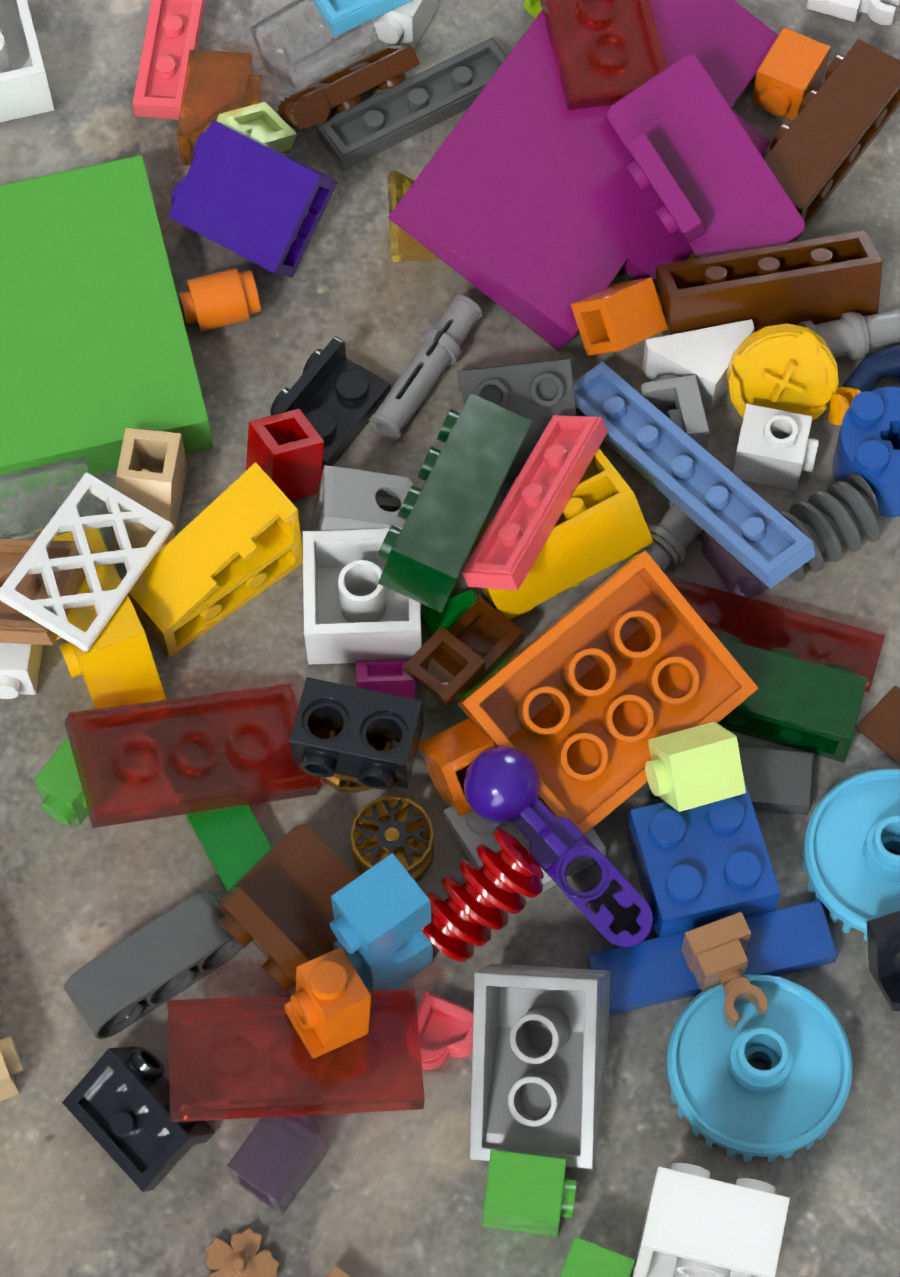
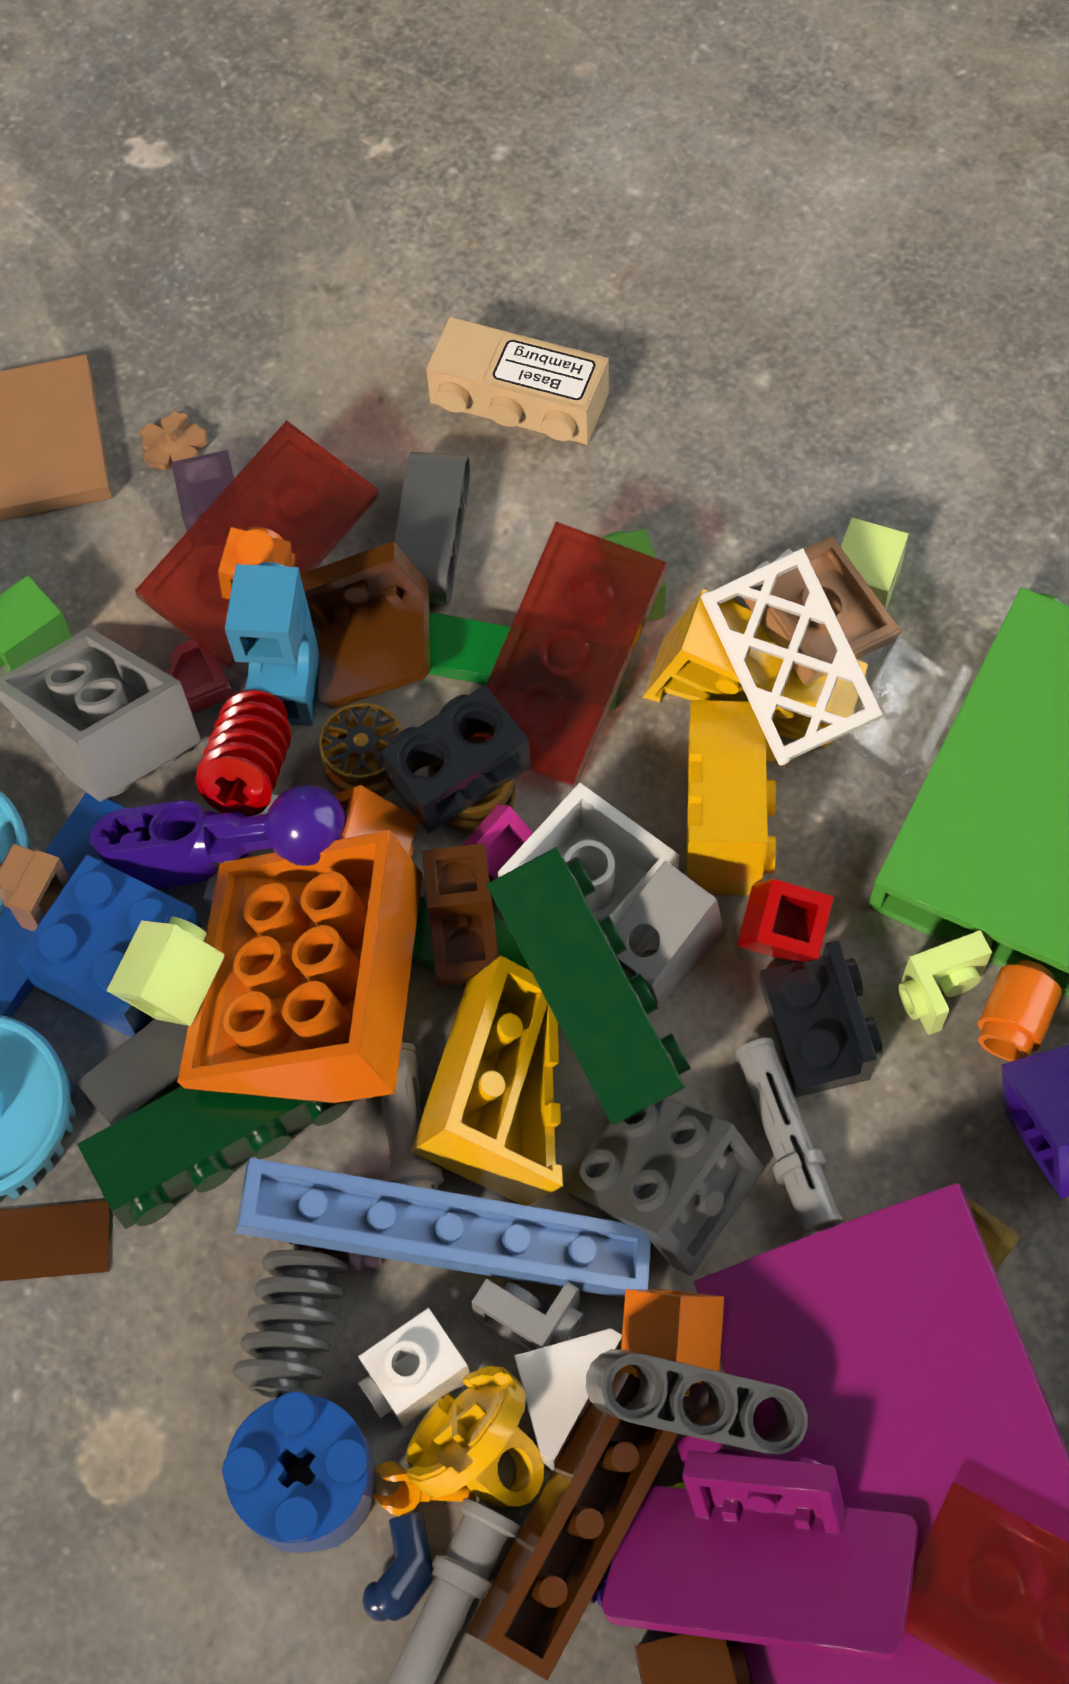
camera: 135 degrees right, 0 degrees up
(128, 1113) = (350, 434): black bracket -> none
(154, 475) = (848, 797): tan slope -> none
(233, 360) = (946, 969): none -> yellowish green bracket
(534, 503) = (529, 1062): coral tile -> none
(655, 246) = (729, 1406): none -> dark grey beam
(778, 627) = (203, 1228): clear red tile -> none

